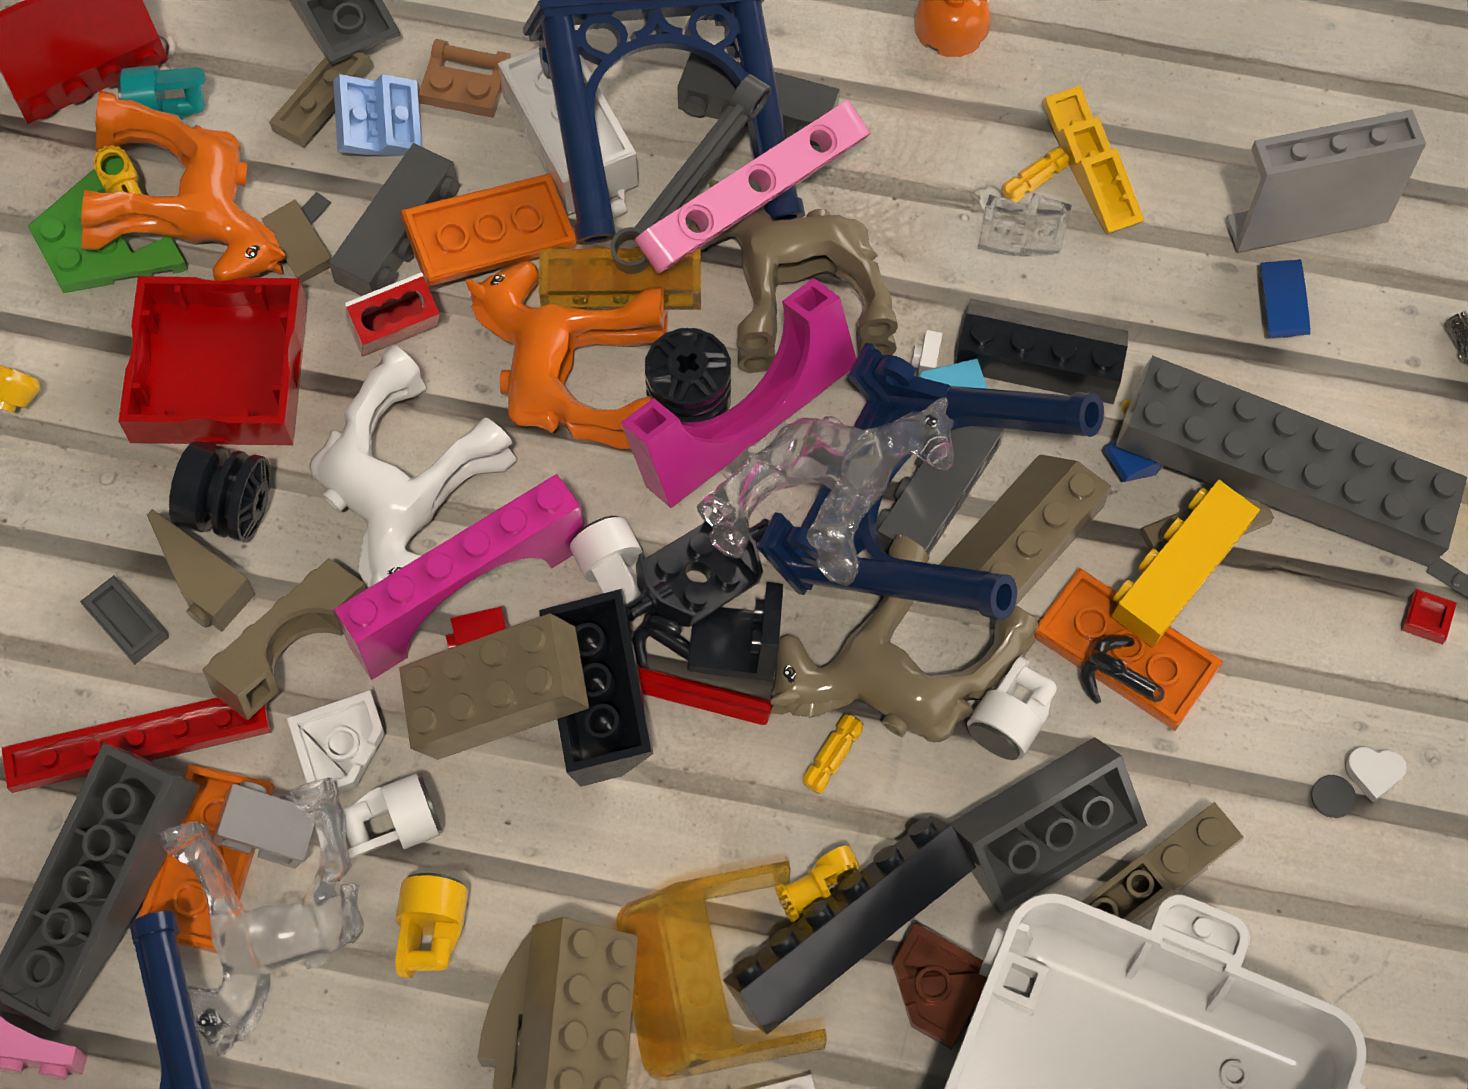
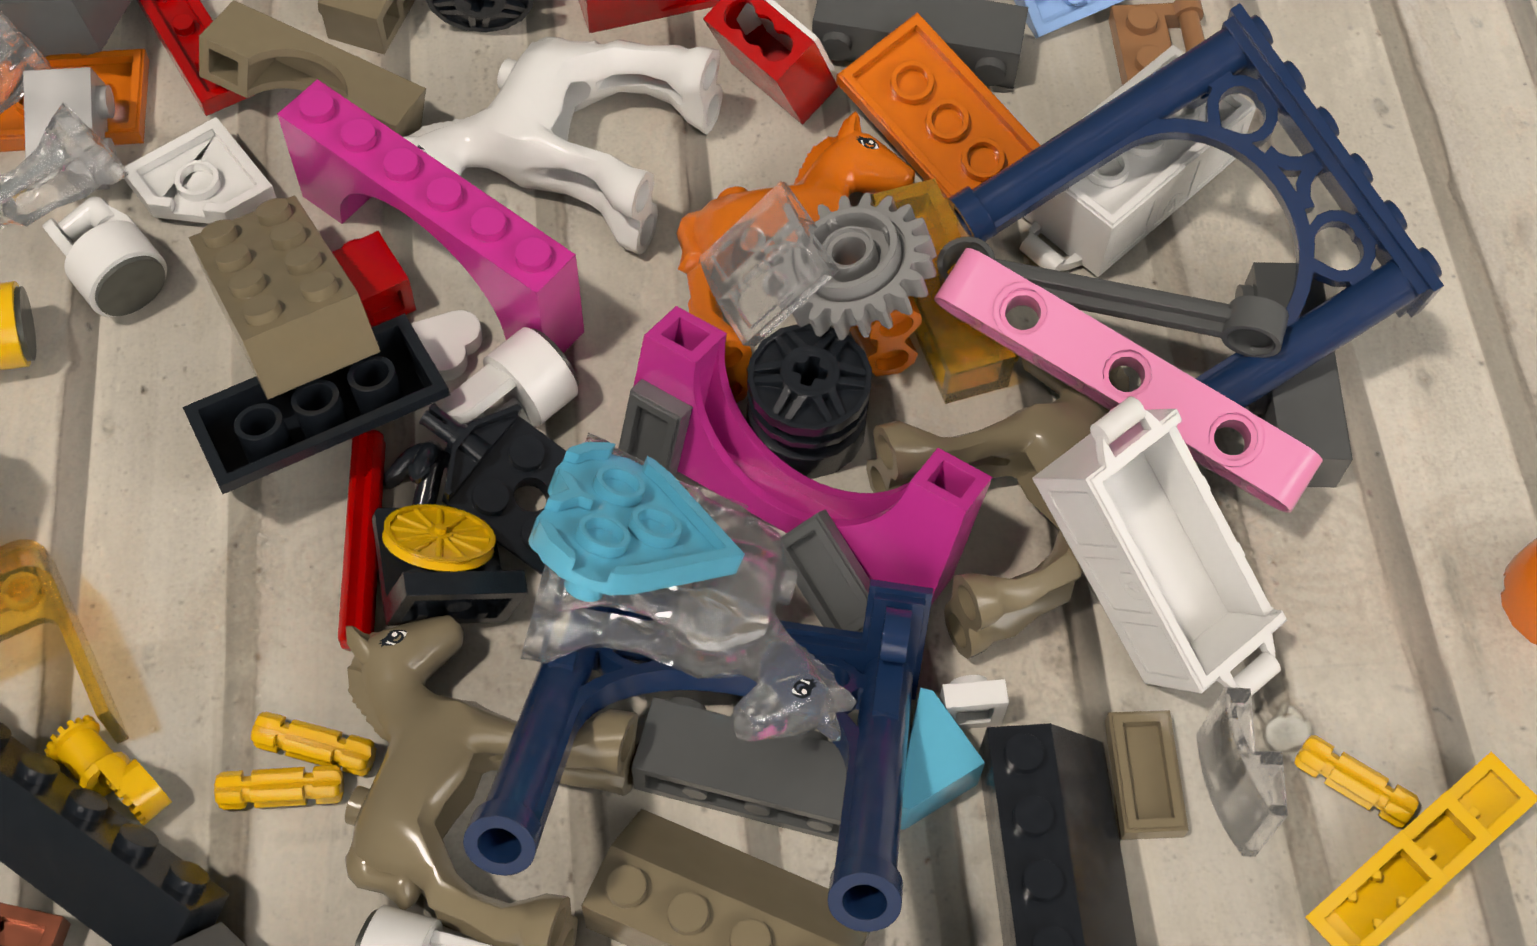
camera: 70 degrees right, 5 degrees down
(542, 594) = (450, 340): none -> white tile
(604, 359) = (767, 265): none -> clear slope
(607, 288) = (880, 261): none -> light grey gear
(688, 480) = (655, 425): none -> dark grey tile
(727, 626) = (438, 537): none -> yellow wheel
(798, 483) = (626, 527): none -> medium azure plate
(837, 401) = (828, 573): none -> dark grey tile
(857, 780) = (279, 787): none -> yellow axle
(883, 210) = (1161, 553): none -> white container
(996, 283) = (1146, 775): none -> dark tan tile

